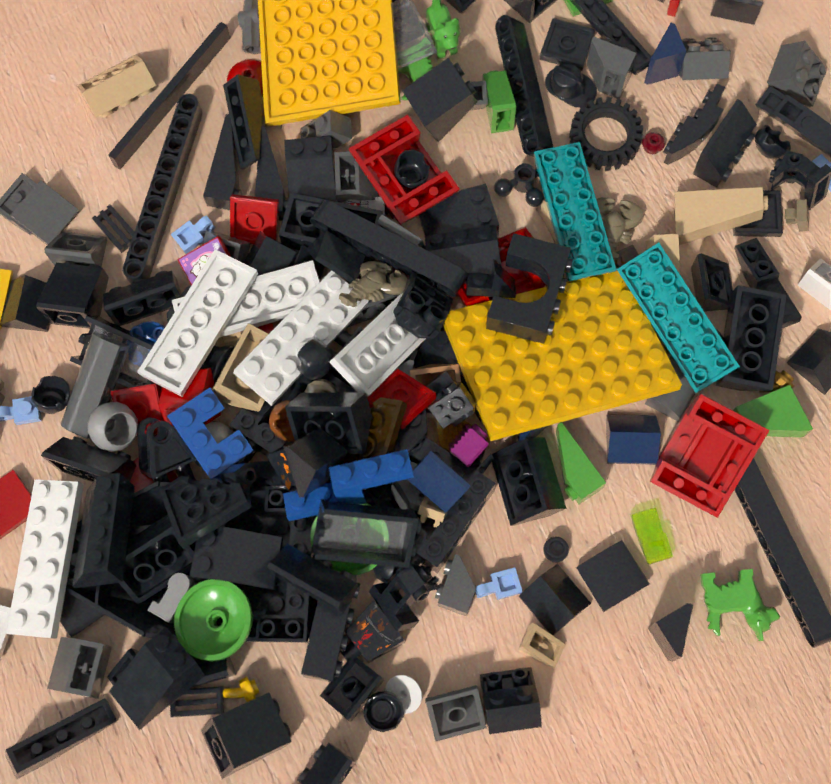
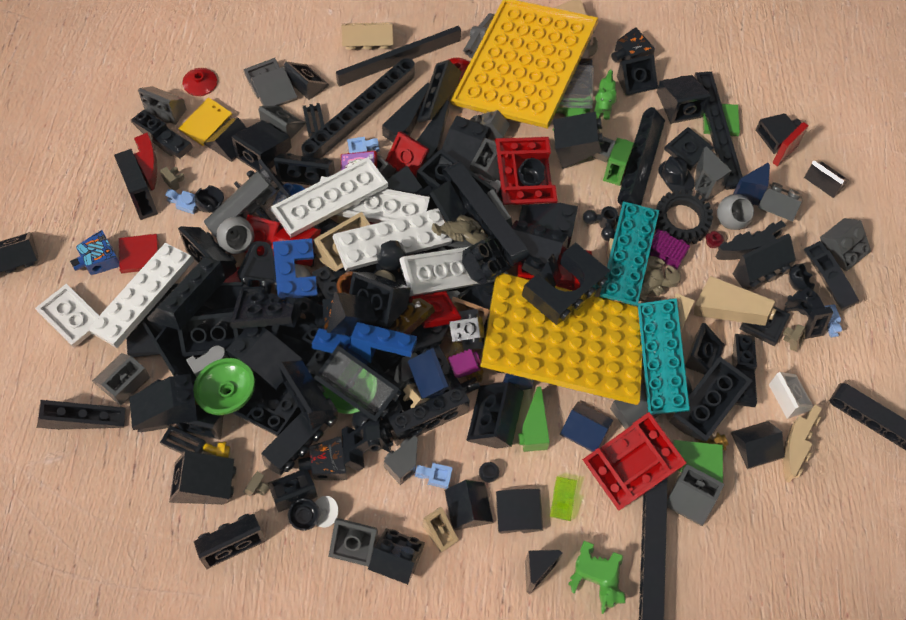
camera: 20 degrees right, 10 degrees down
(75, 182) = (305, 79): none -> black slope
(309, 706) = (256, 485): none -> dark tan tile
(612, 181) = (668, 248): none -> magenta brick
(662, 99) = (735, 212): none -> light grey helmet
(789, 457) = (694, 494): none -> dark grey slope

